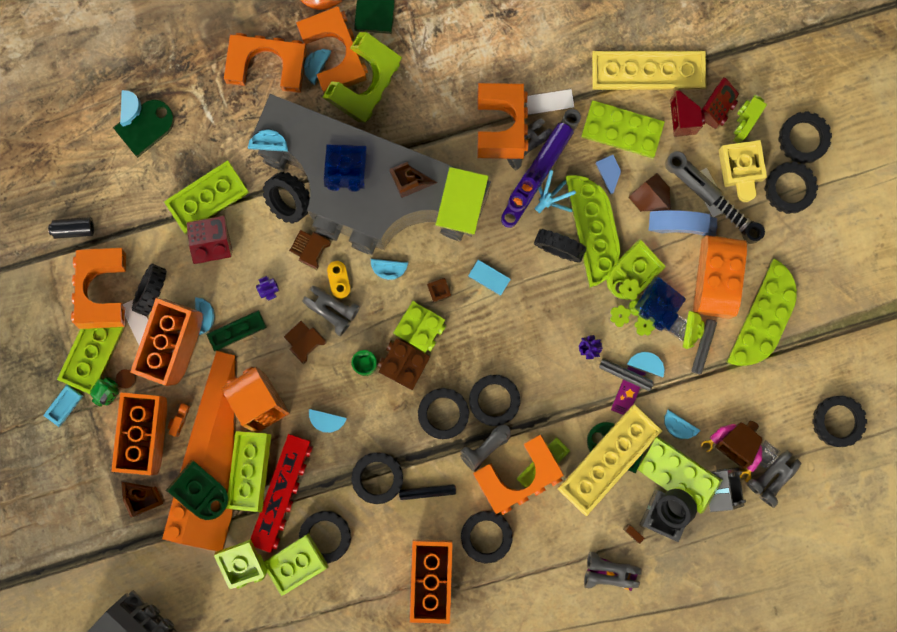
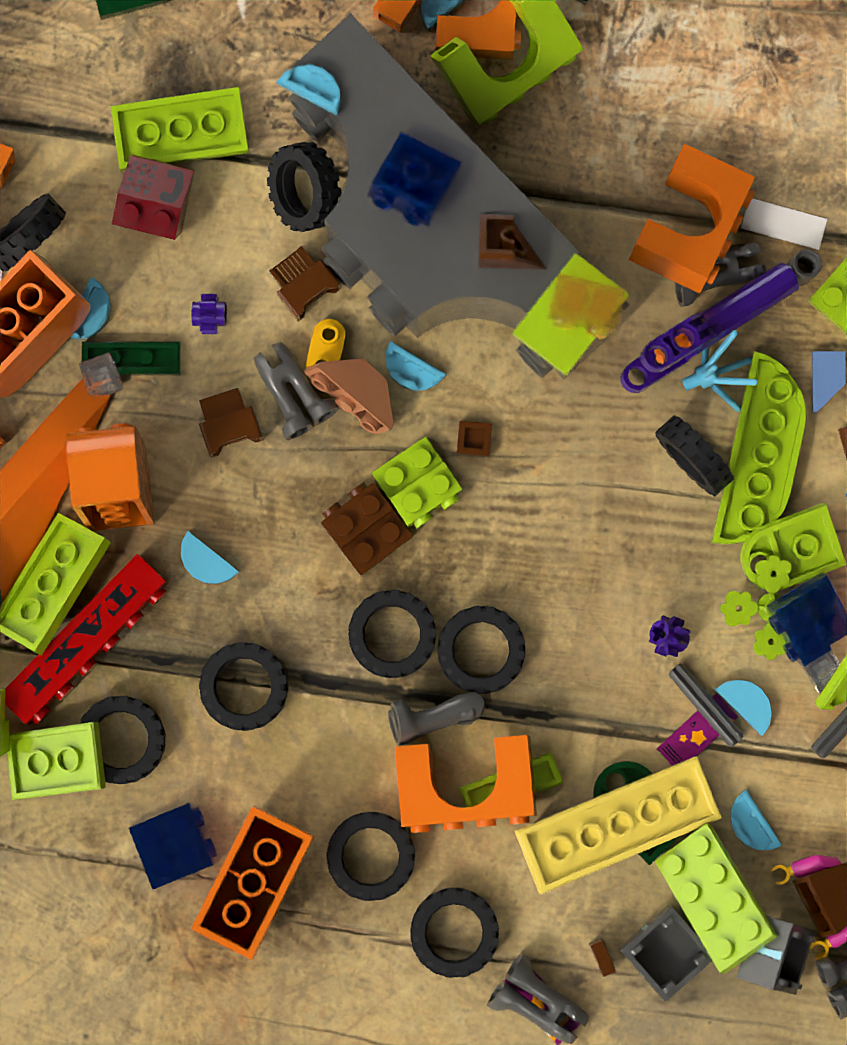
camera: 25 degrees right, 0 degrees up
(225, 347) = (101, 376): none -> clear slope
(364, 363) = (305, 498): green wheel -> none
(365, 292) = (357, 390): none -> nougat slope
(379, 580) = (173, 845): none -> clear blue plate
(426, 492) = (311, 744): black axle -> none
(468, 192) = (586, 305): none -> clear yellow piece
(489, 277) = (561, 455): medium azure tile -> none
(570, 560) = (475, 961): none -> black tyre
(685, 500) = (704, 939): black tyre -> none

